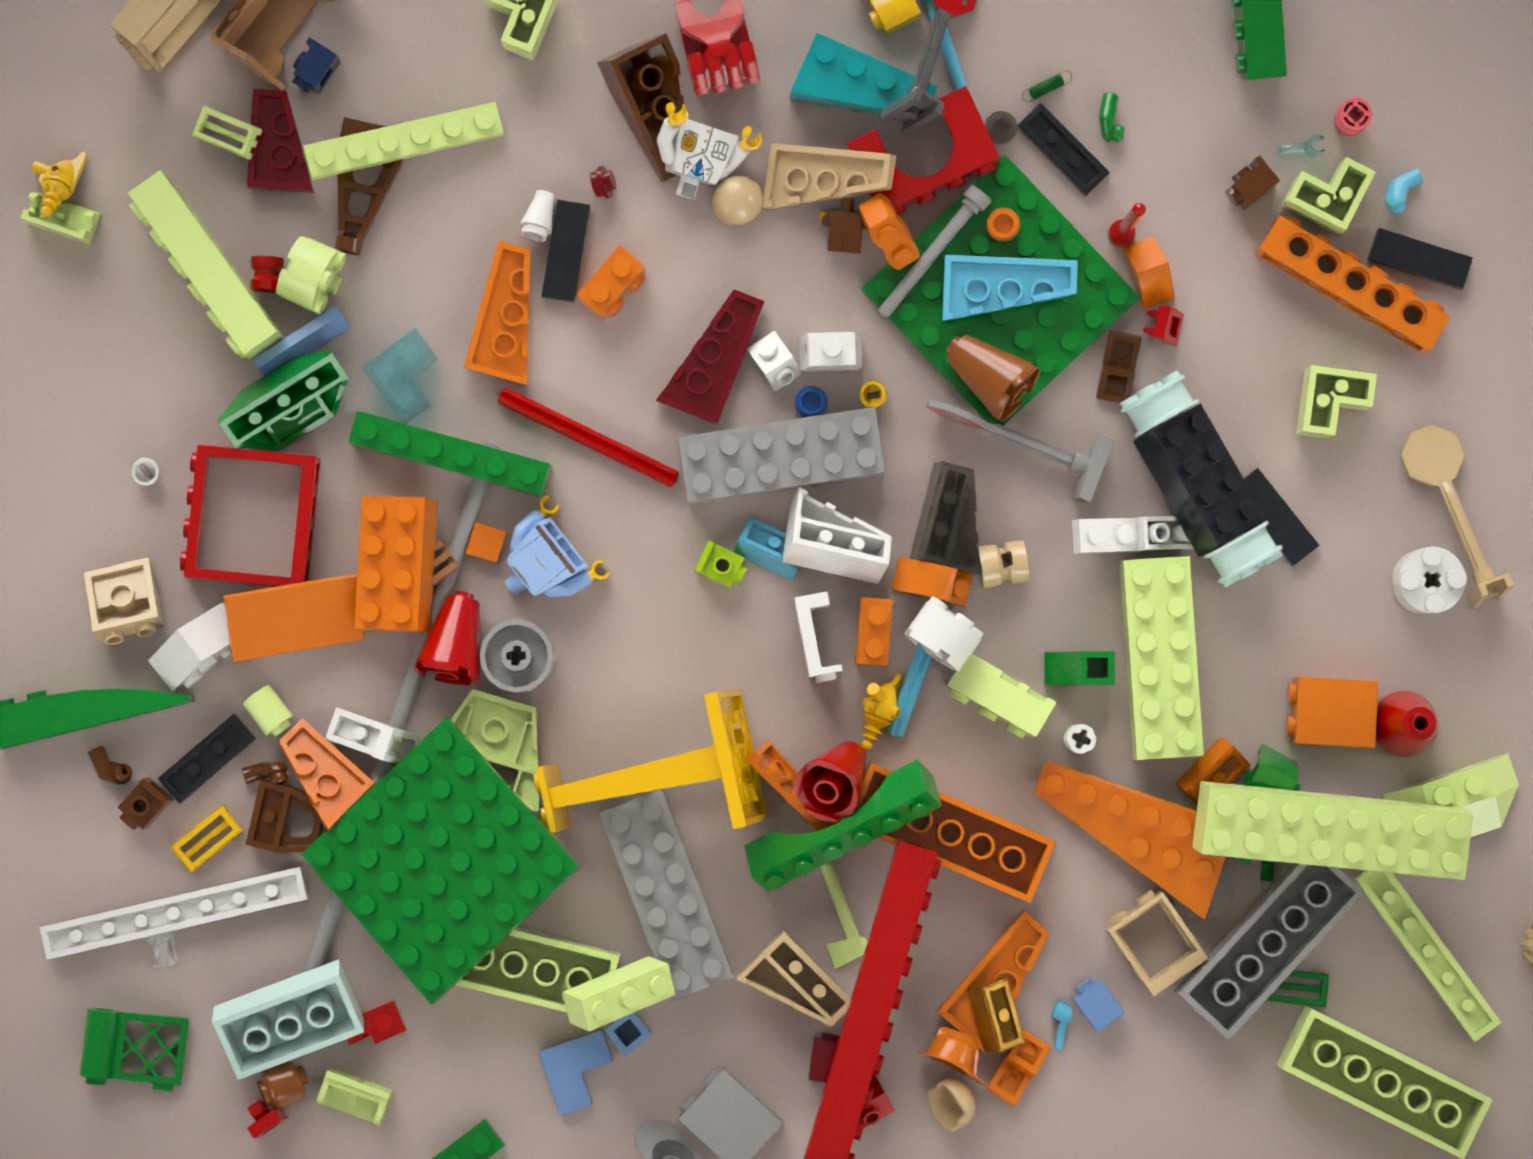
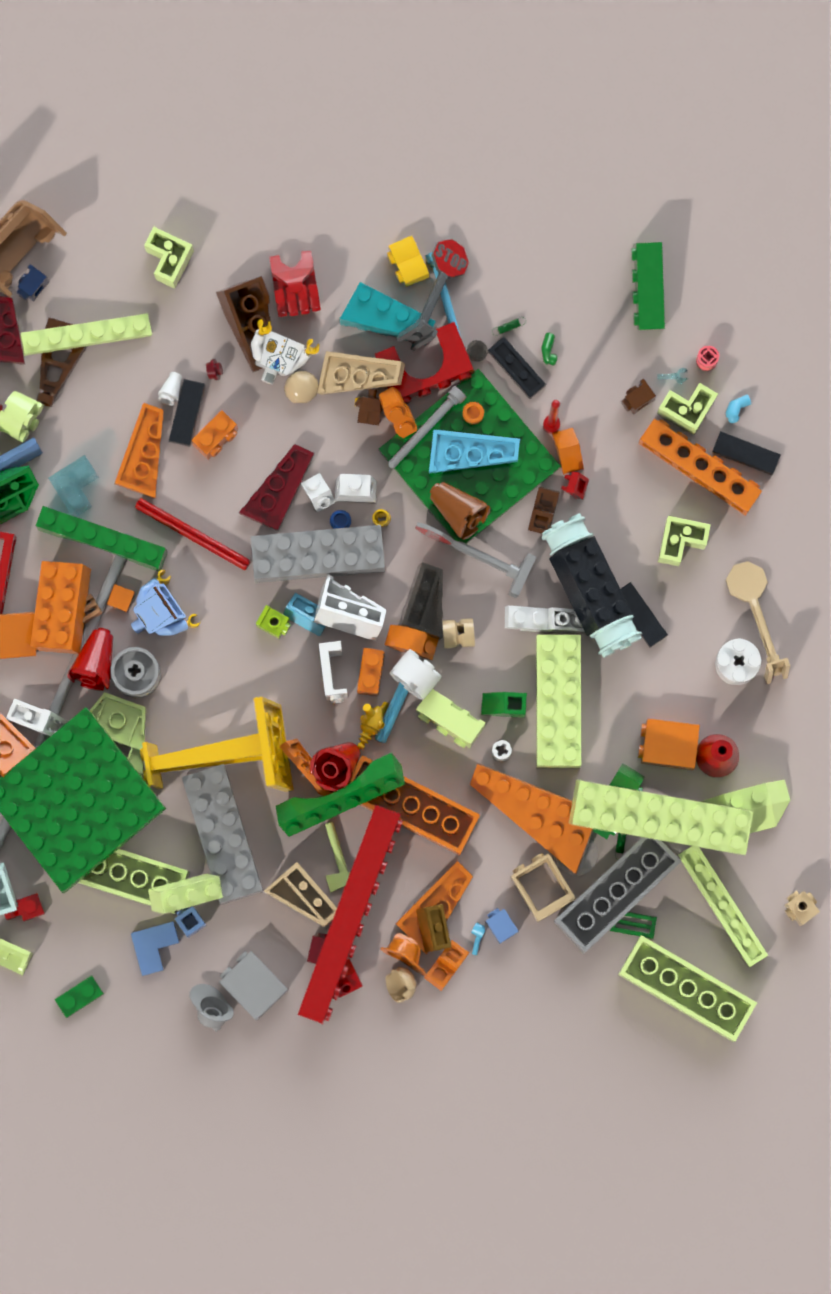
camera: 10 degrees right, 5 degrees down
(1219, 764) = (593, 772): orange slope -> none

